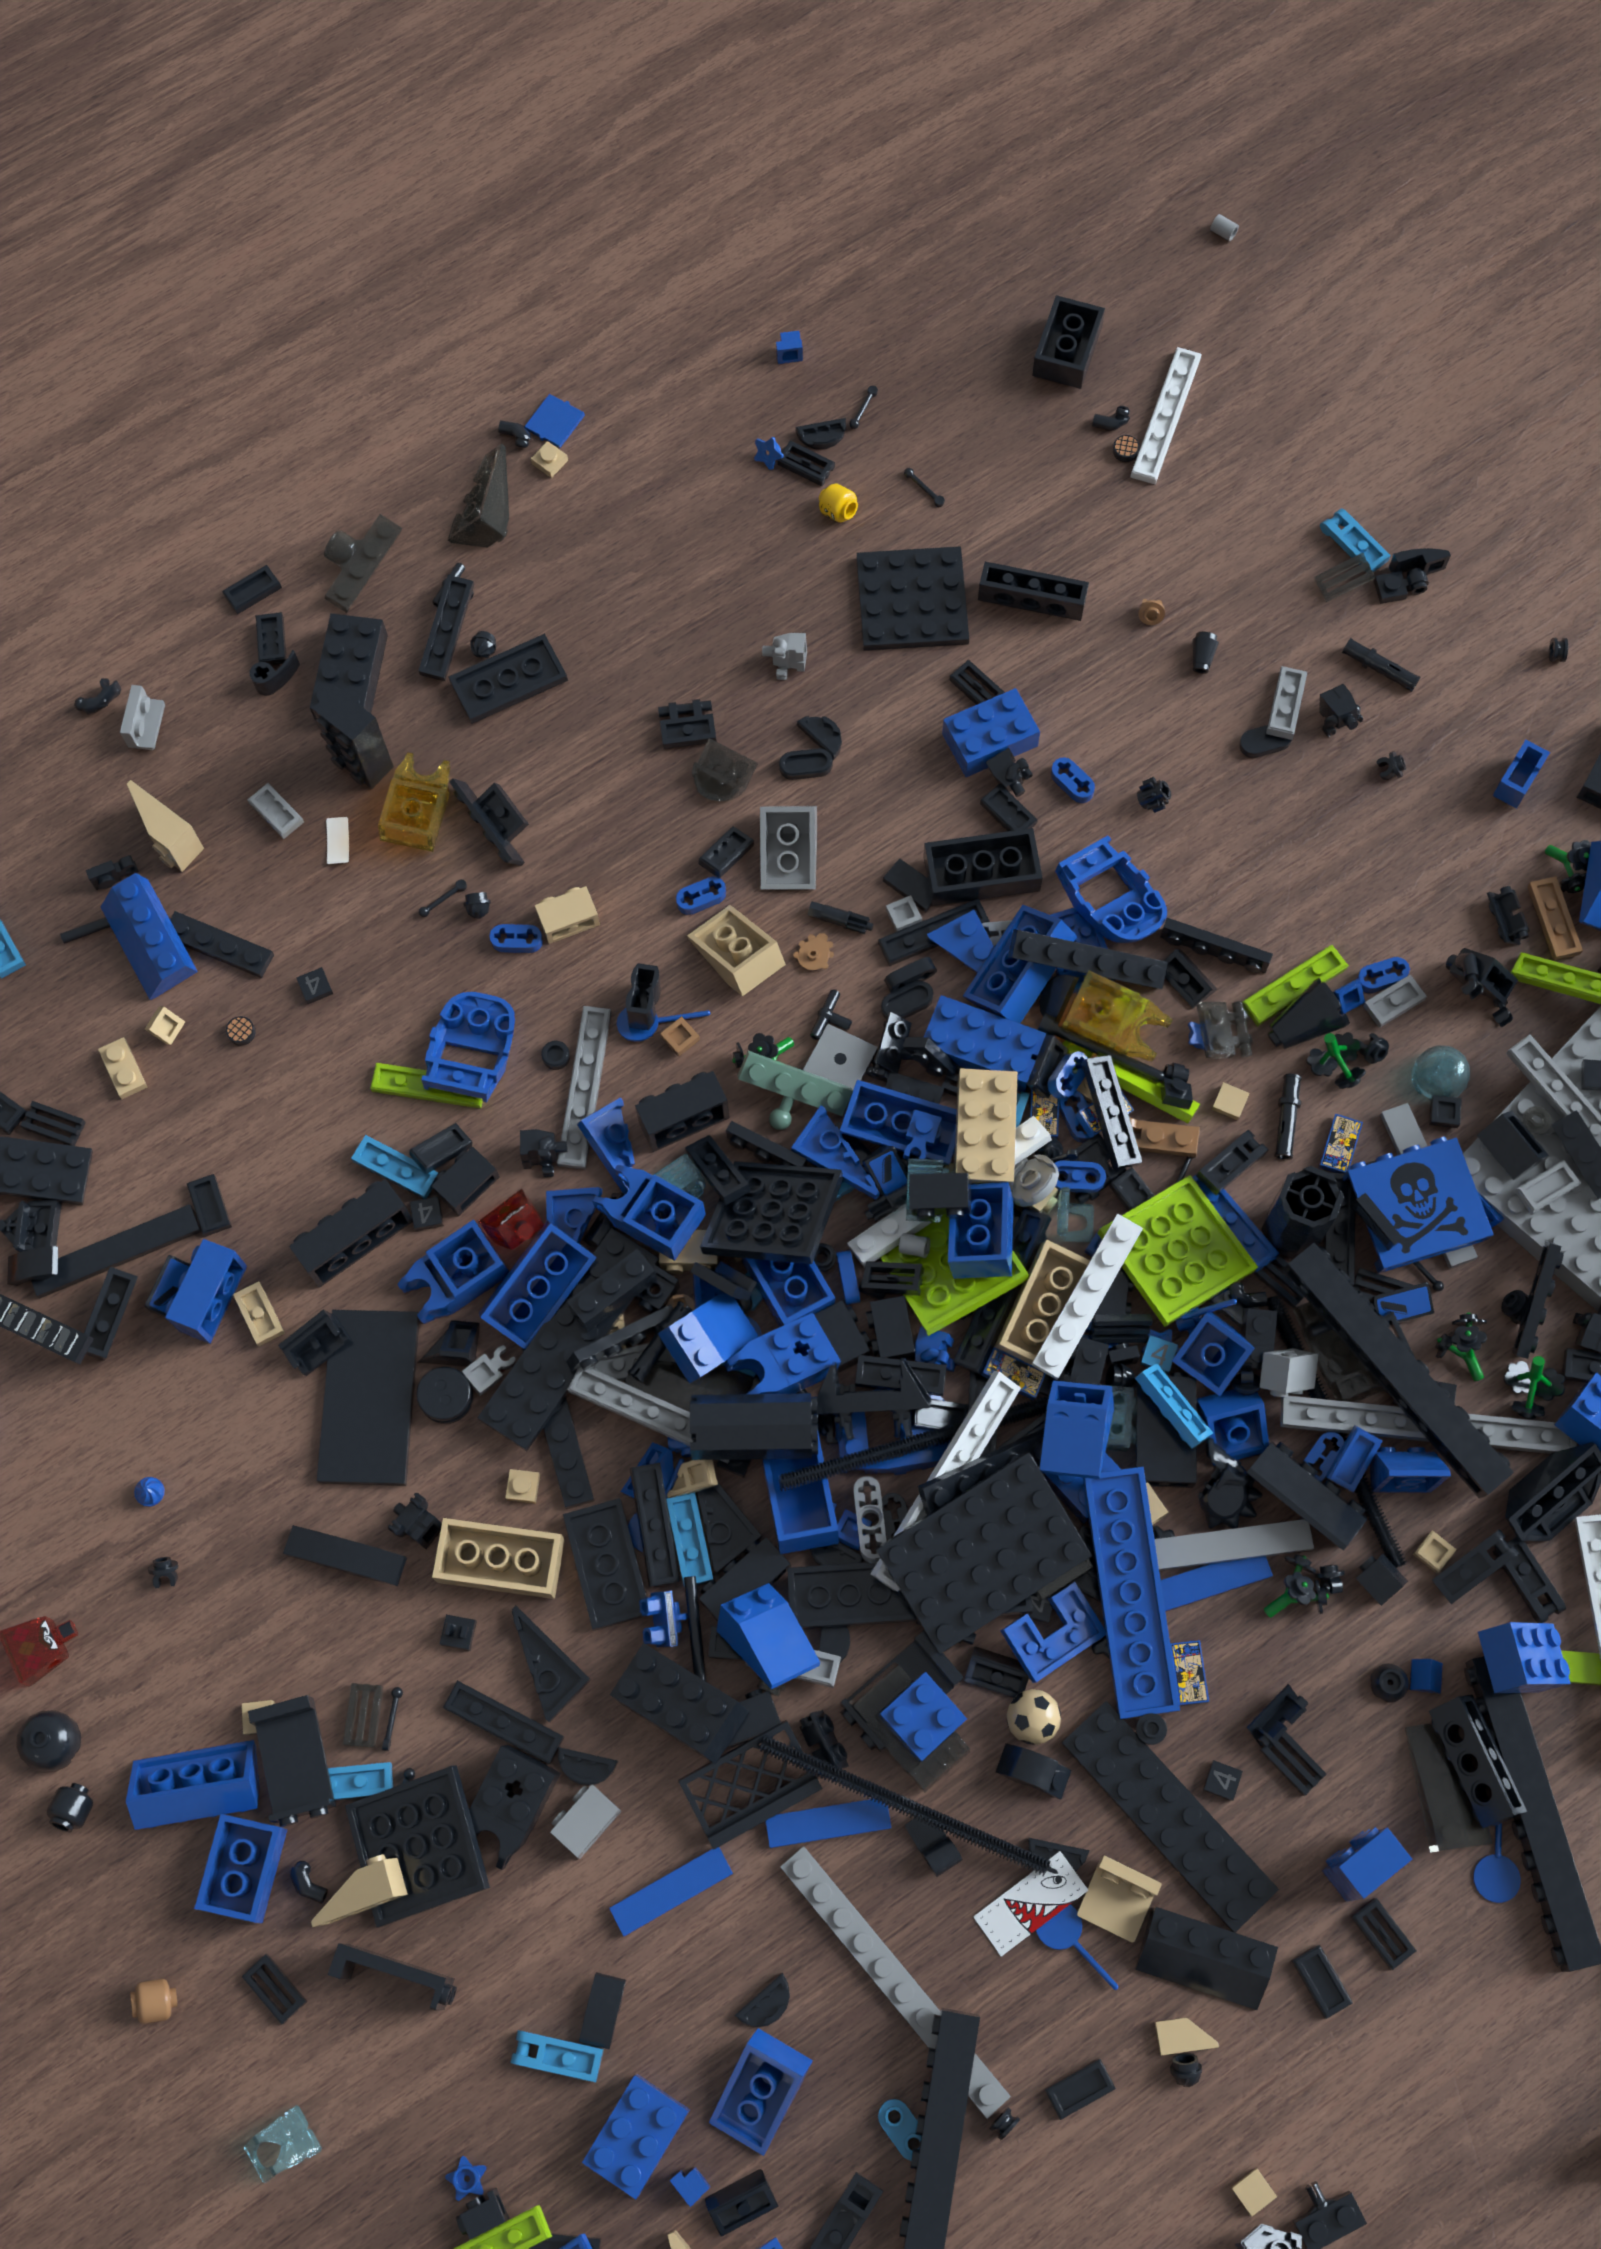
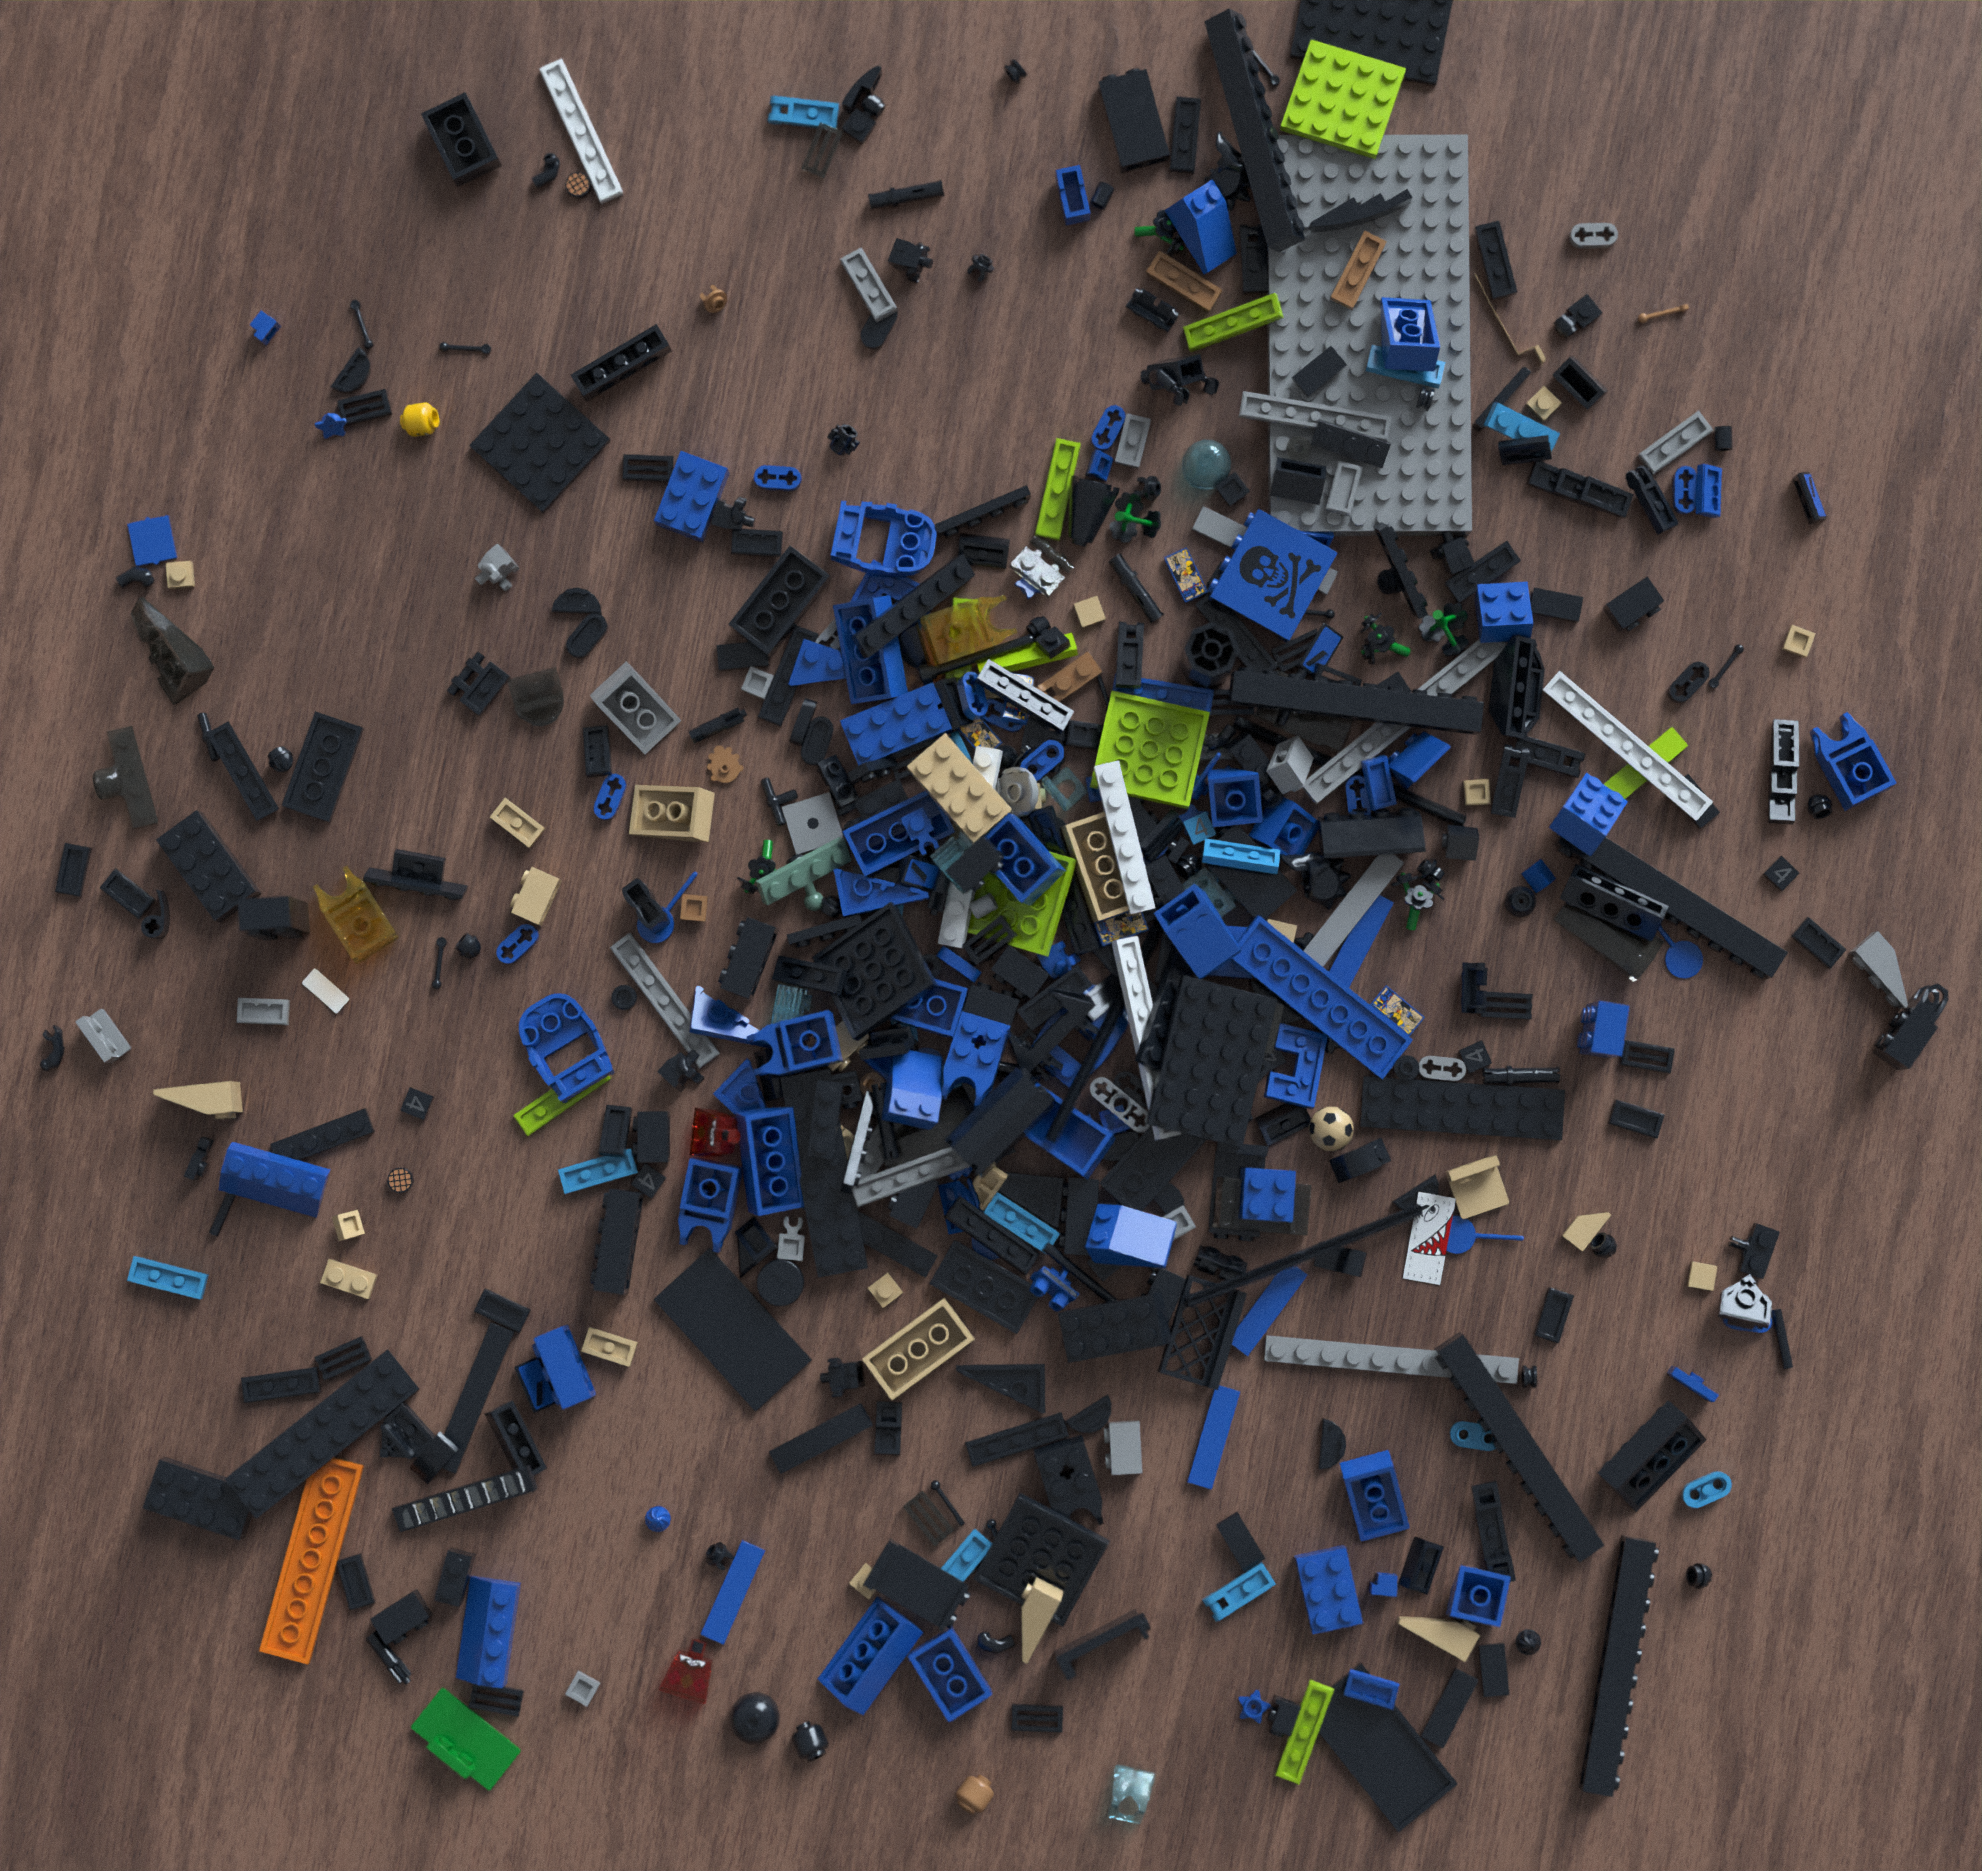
camera: 45 degrees left, 15 degrees up
(143, 1614) = (732, 1592): none -> blue tile
(315, 1342) = (666, 1330): black hinge -> none
(408, 1604) = (888, 1428): none -> black slope
(458, 1632) = (936, 1414): black tile -> none
(610, 849) = (517, 822): none -> tan plate
(617, 1432) = (912, 1203): none -> black slope
(789, 1134) = (831, 906): none -> black plate
(1187, 1756) = (1440, 1074): none -> light grey beam
(1204, 649) = (778, 298): black cone -> none
(1206, 1958) = (1558, 1171): black slope -> none
(1250, 1837) = (1520, 1075): none -> black pin
(1376, 1221) = (1259, 616): black tile -> none
(1545, 798) = (1102, 195): none -> black hinge

